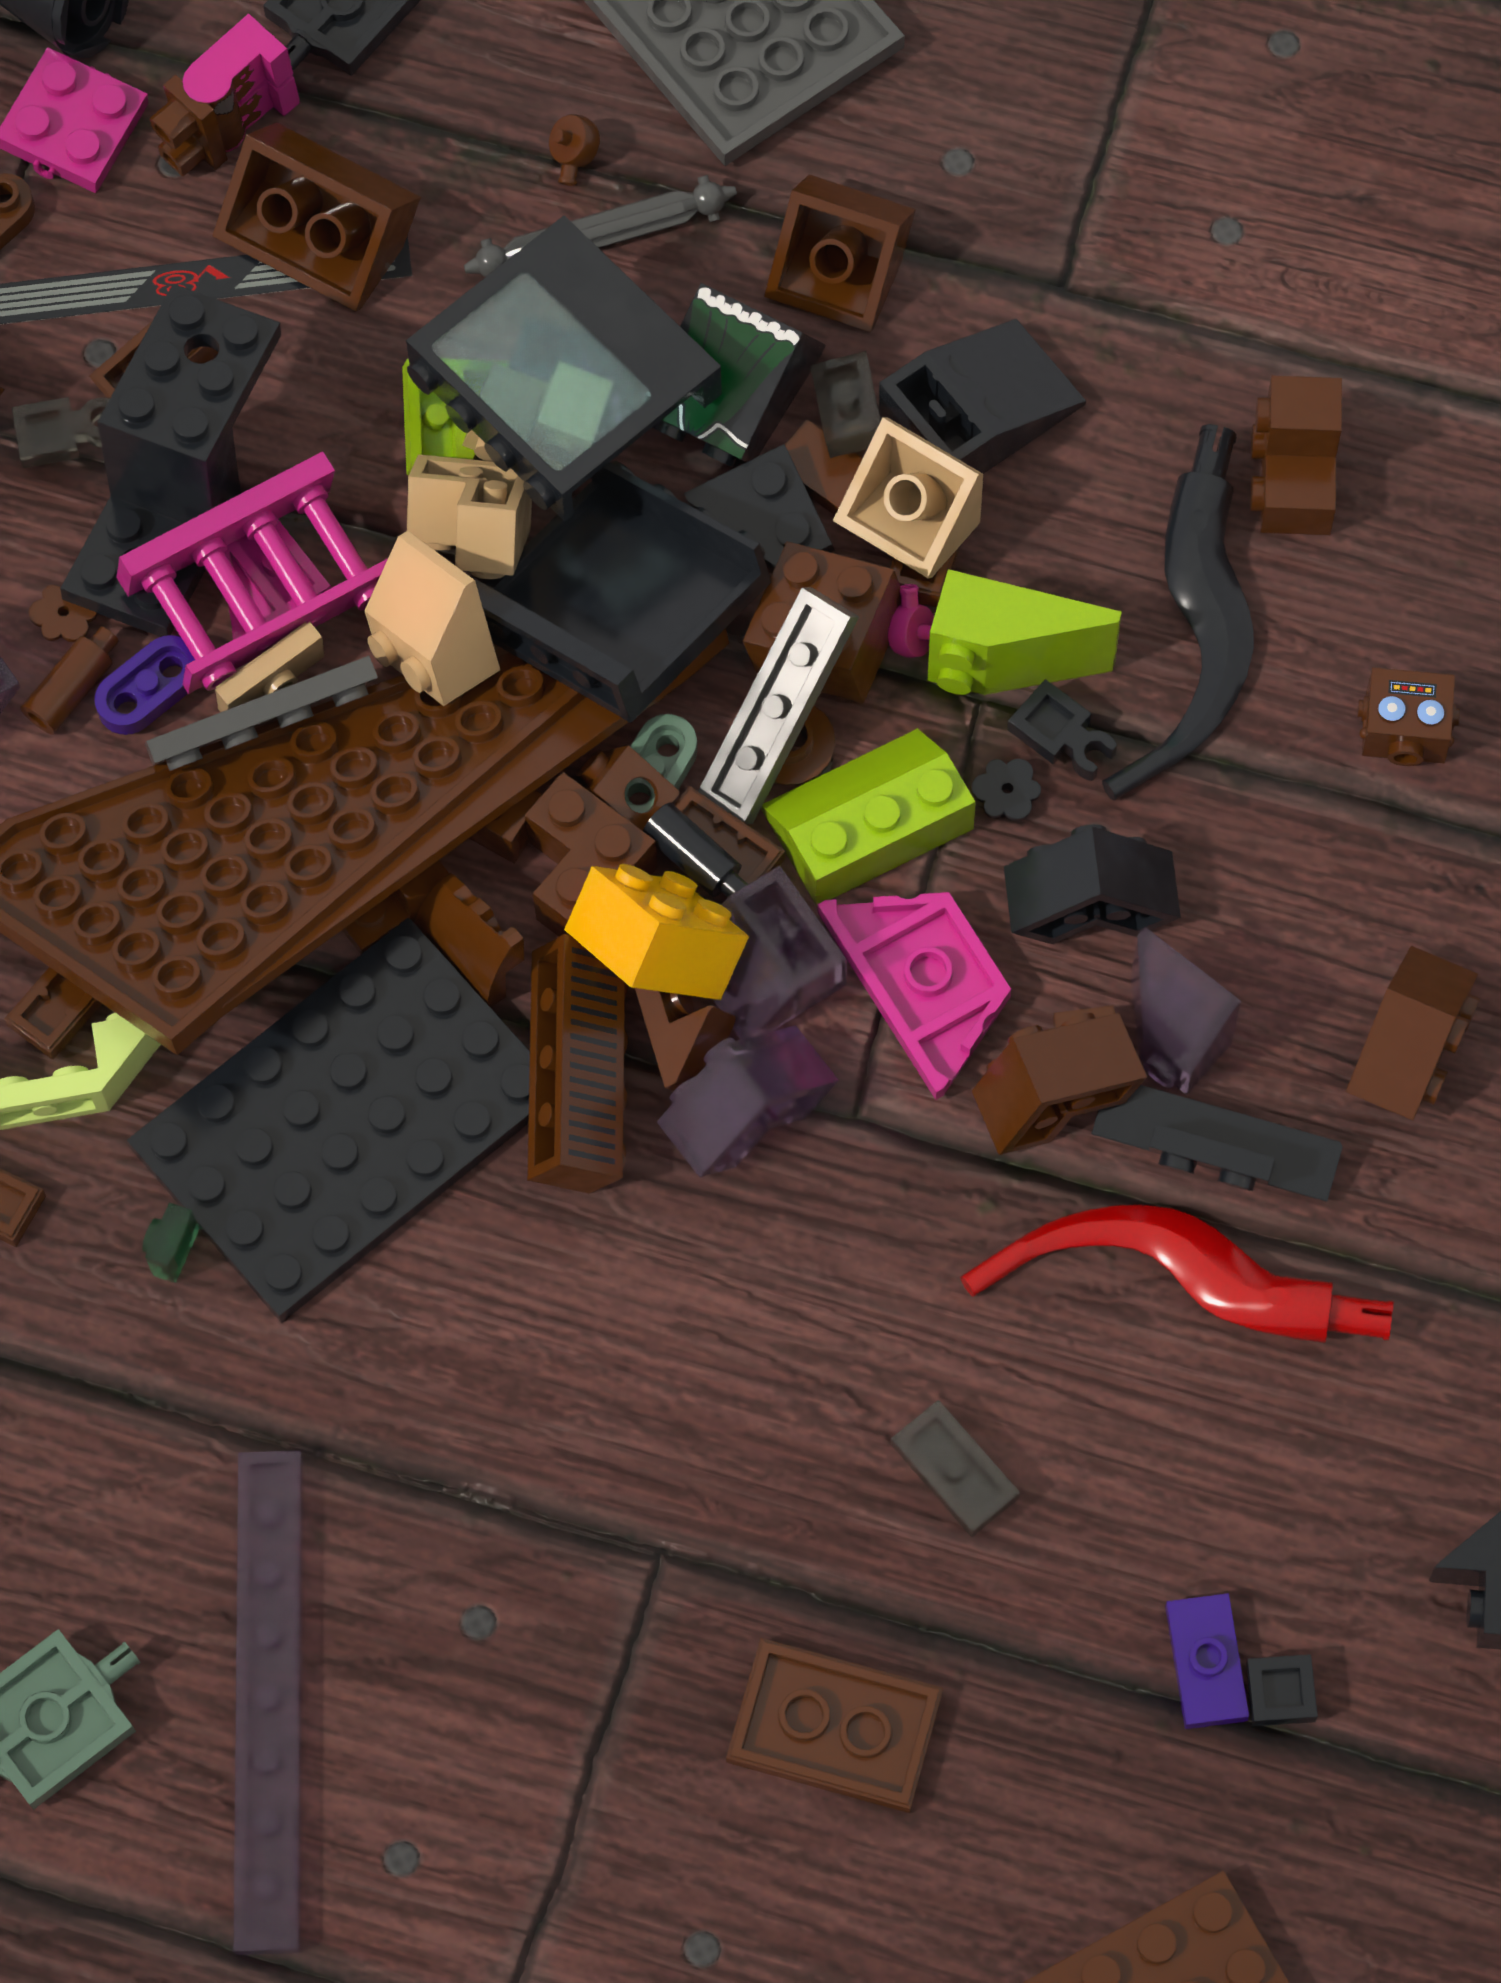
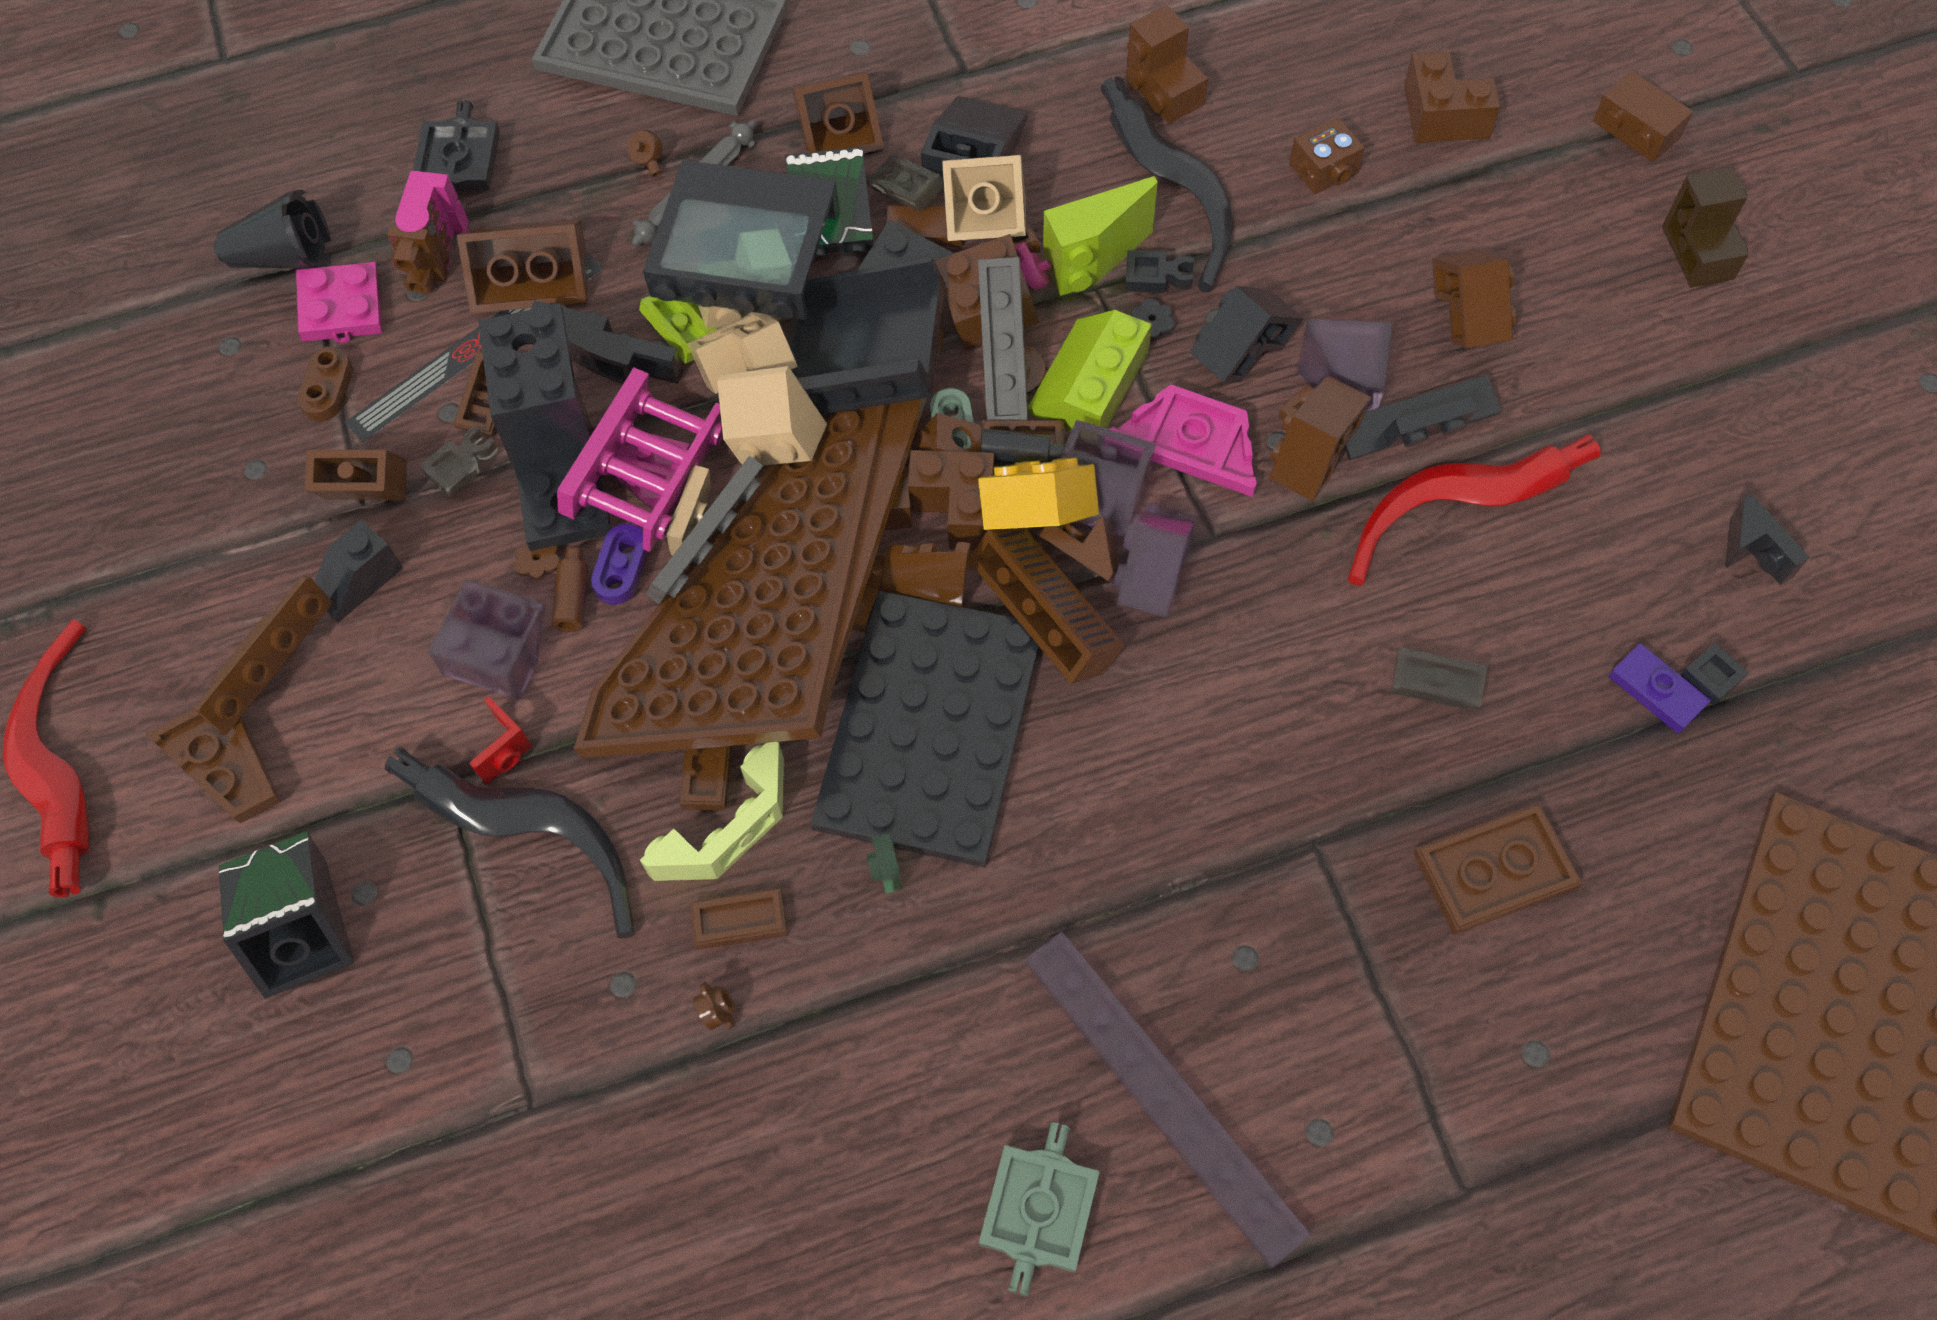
camera: 35 degrees left, 5 degrees down
(326, 390) = (612, 354): none -> black slope

